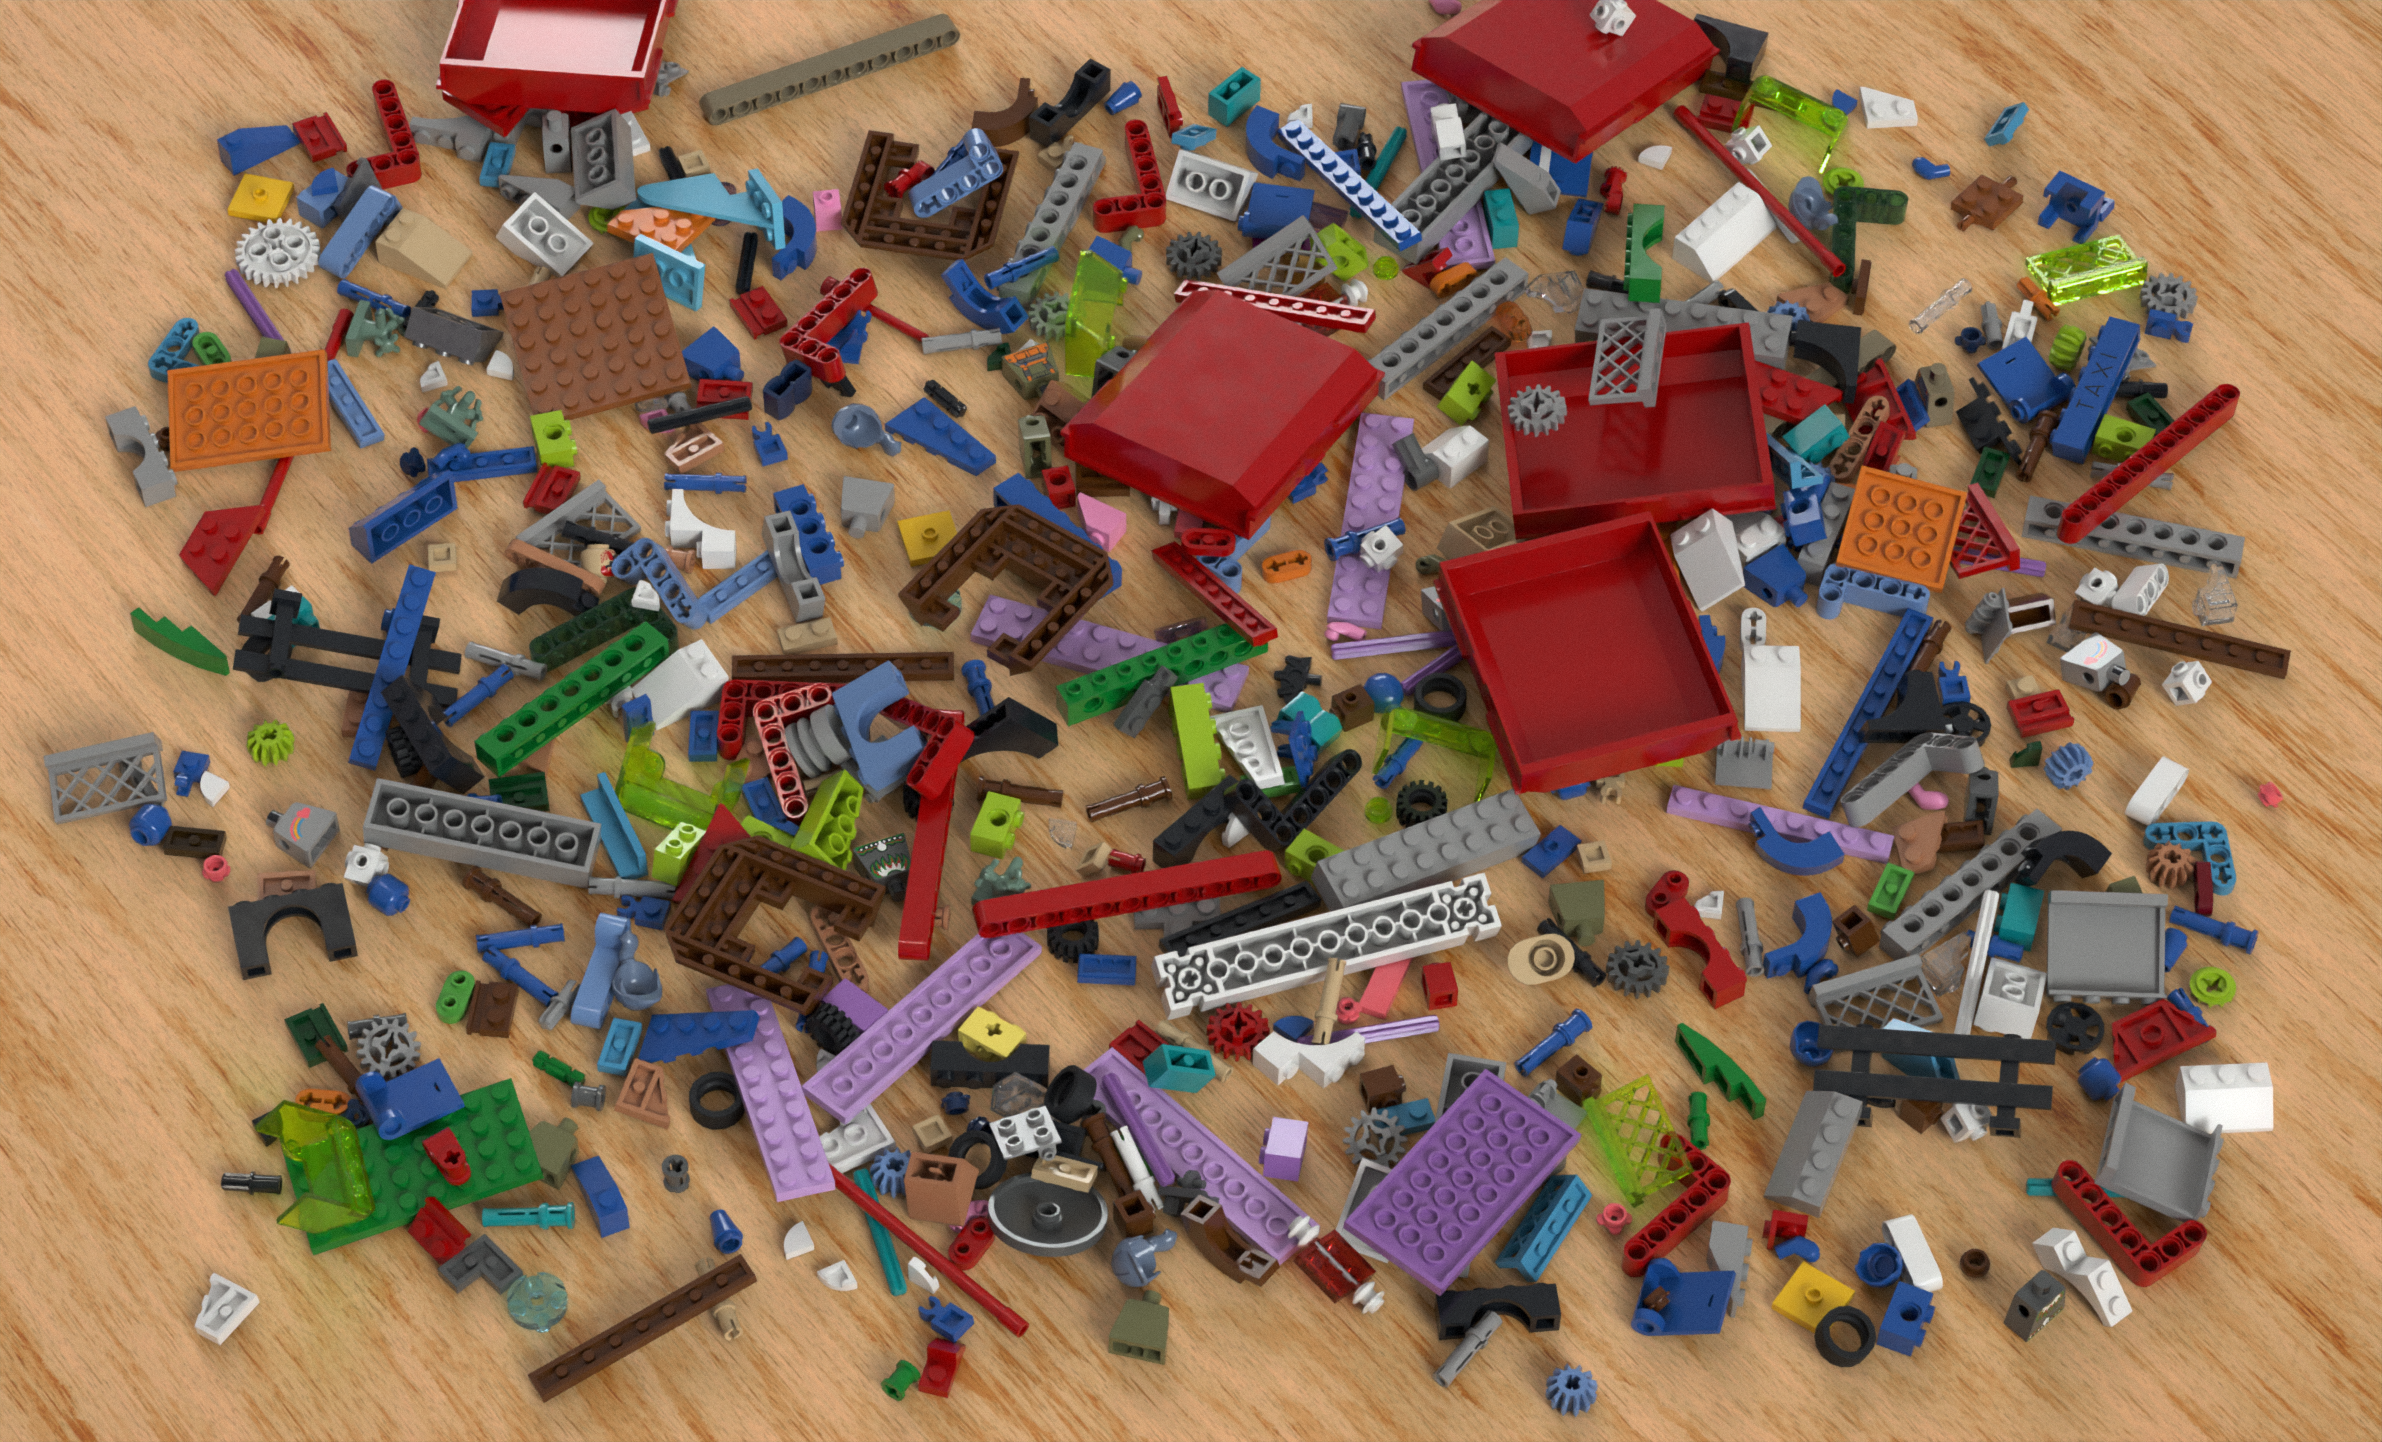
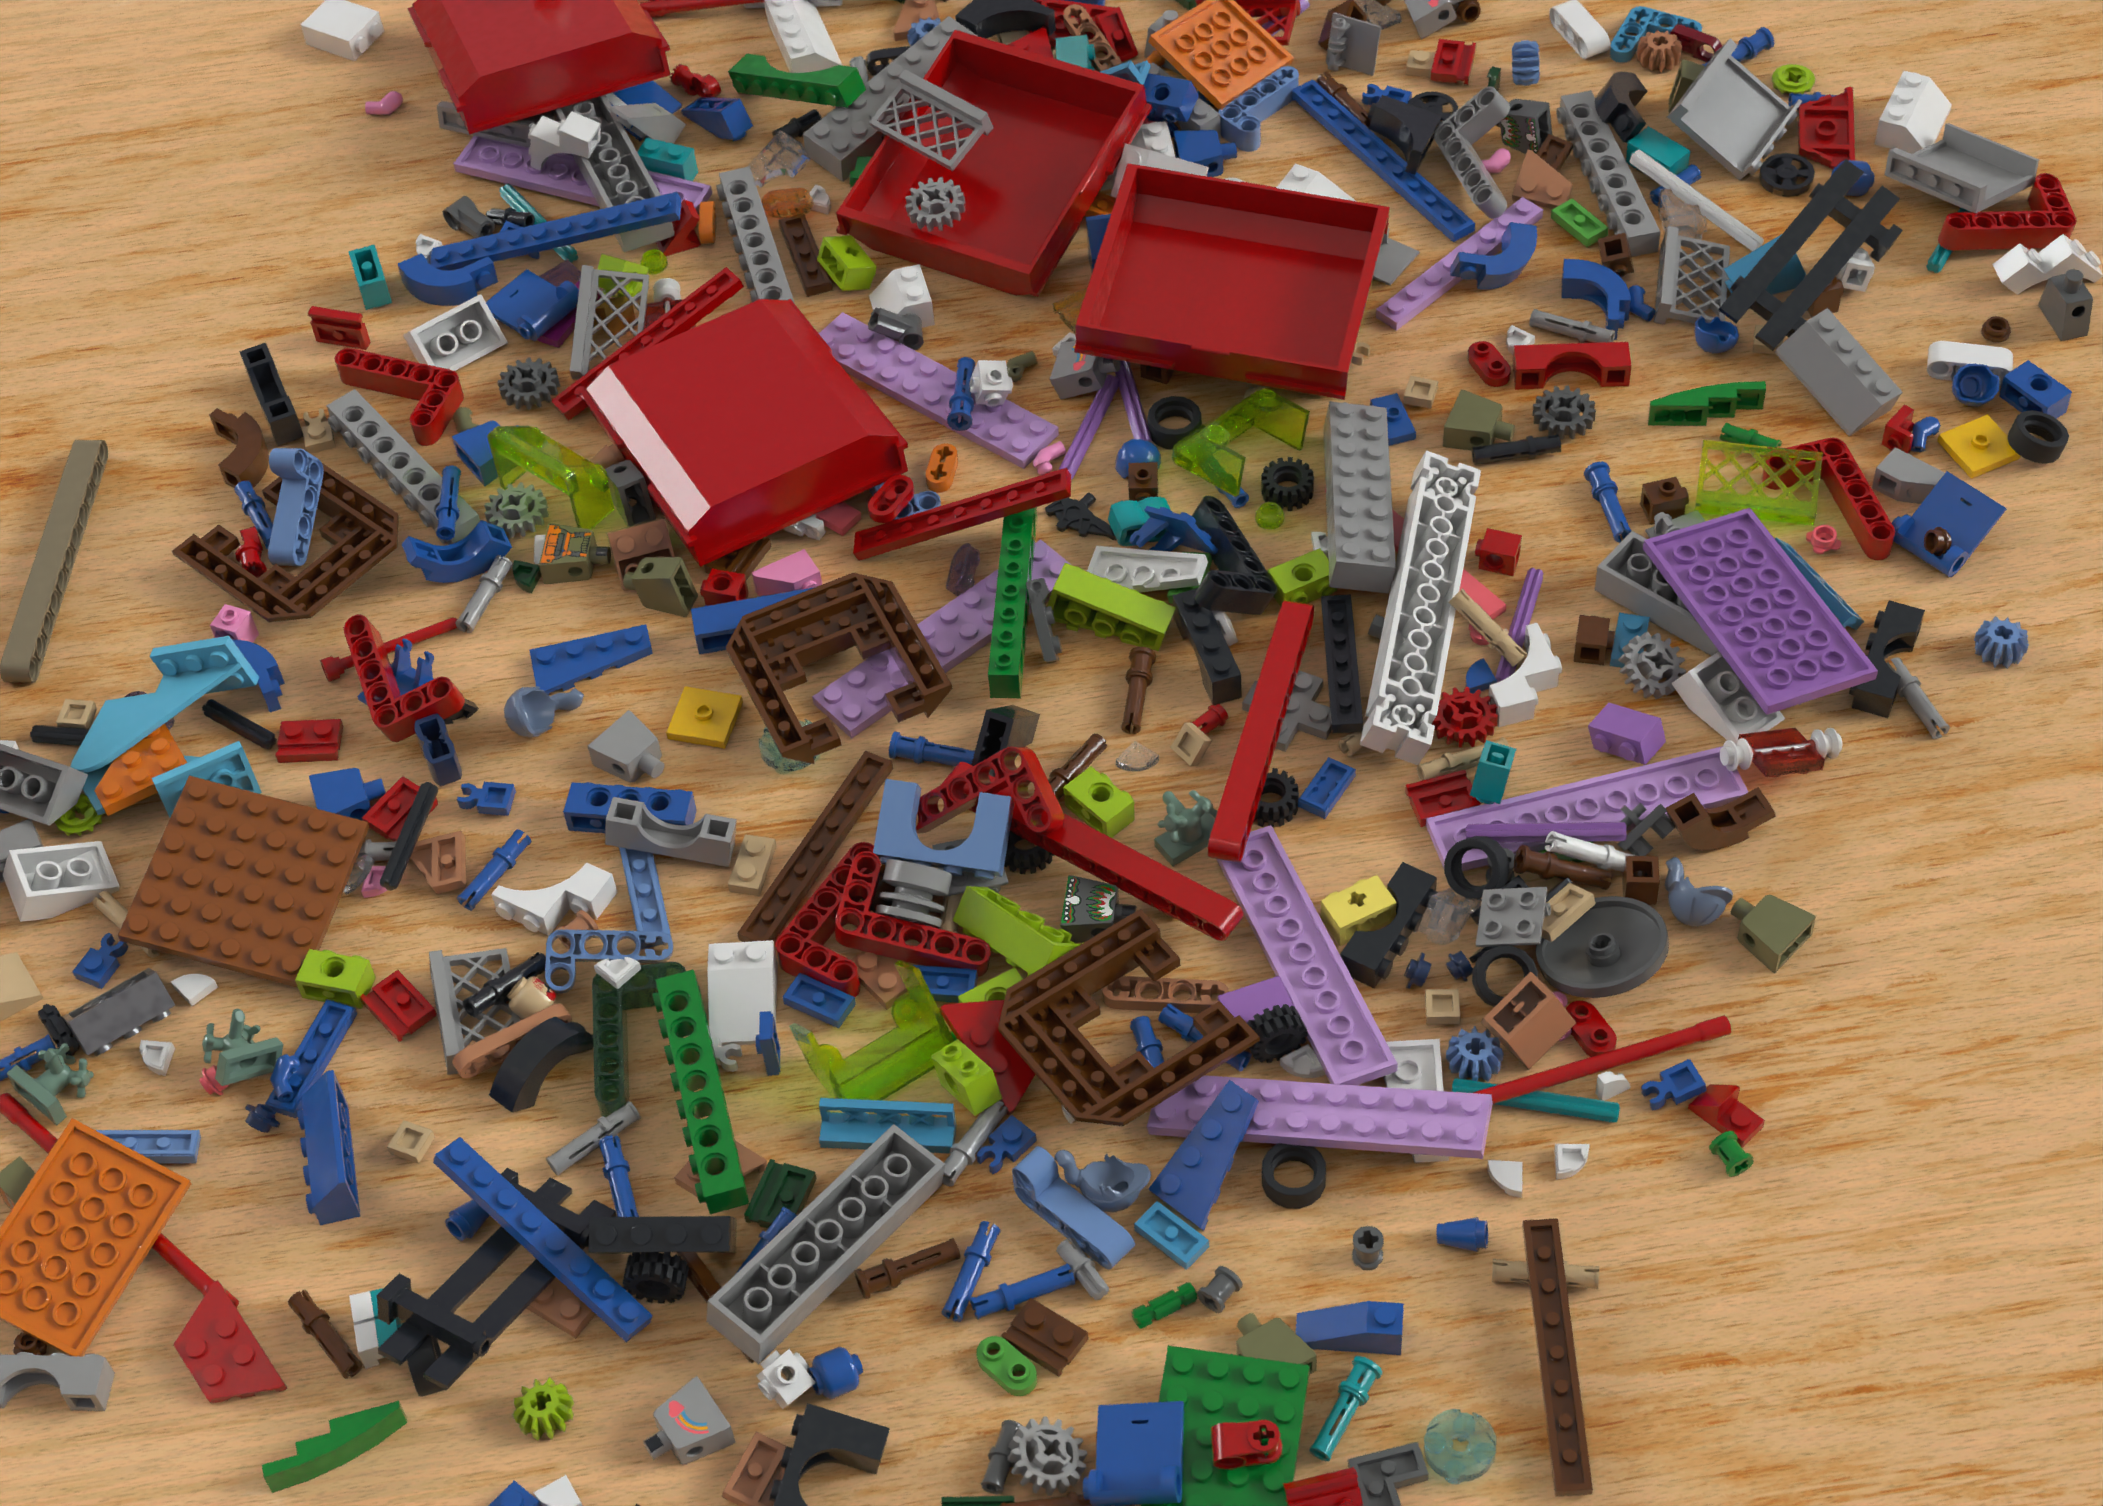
camera: 55 degrees left, 0 degrees up
(644, 1094) = (1246, 1236): nougat wing -> none
(788, 827) = (1001, 966): blue tile -> none
(945, 398) = (543, 636): black axle -> none
(1123, 98) = (294, 357): blue cone -> none
(1193, 136) = (391, 324): dark azure plate -> none
(1478, 533) = (1020, 323): tan slope -> none
(1540, 959) = (1520, 466): tan piece -> none
(1655, 156) = (678, 44): white tile -> none
(2010, 999) = (1745, 194): white slope -> none

